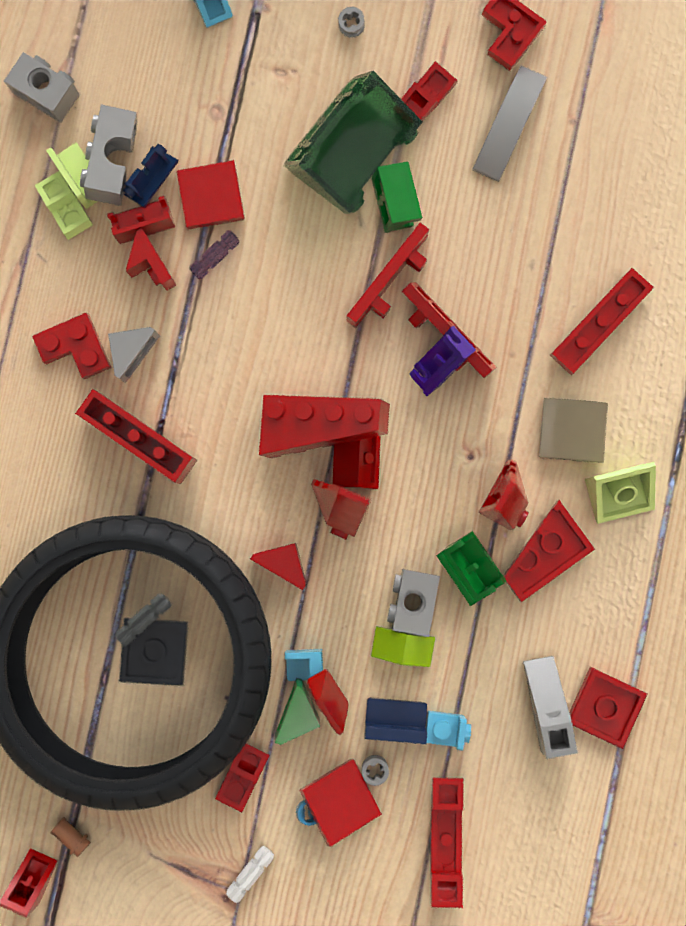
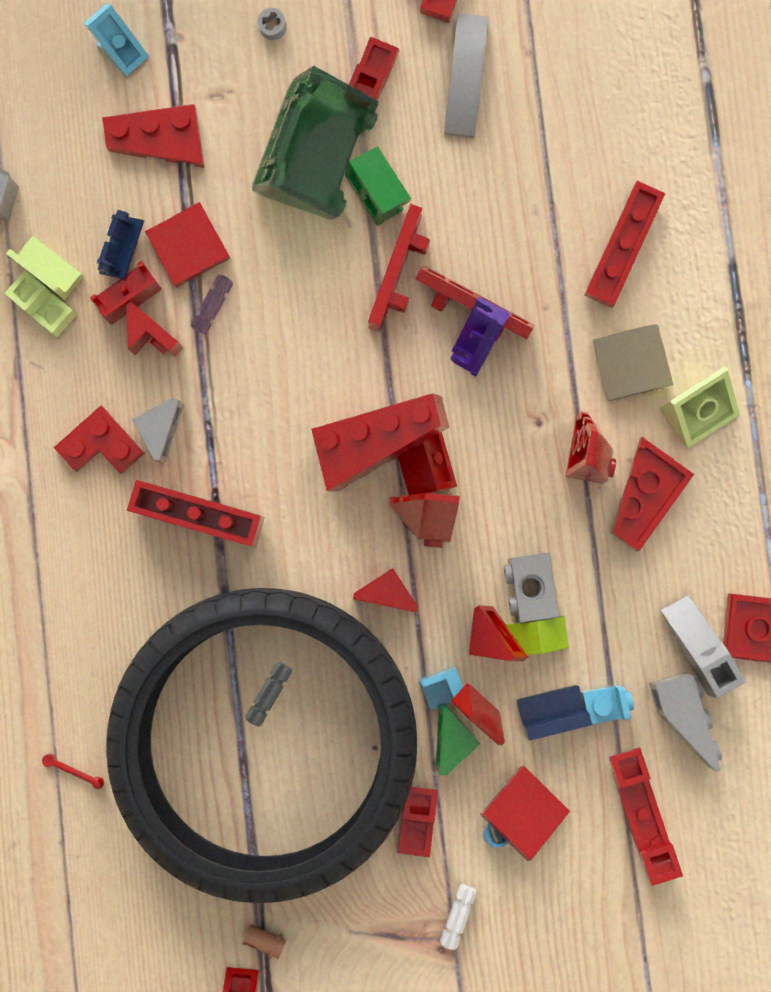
camera: 25 degrees left, 0 degrees up
(113, 131) = (69, 212): light grey arch -> none
(156, 654) = (292, 725): black tile -> none
(217, 87) = (157, 133): none -> red wing
(364, 636) = (492, 637): none -> red slope
(377, 779) = (554, 778): light grey bush -> none
(471, 568) = (577, 534): green hinge -> none
(512, 754) = (681, 708): none -> light grey slope

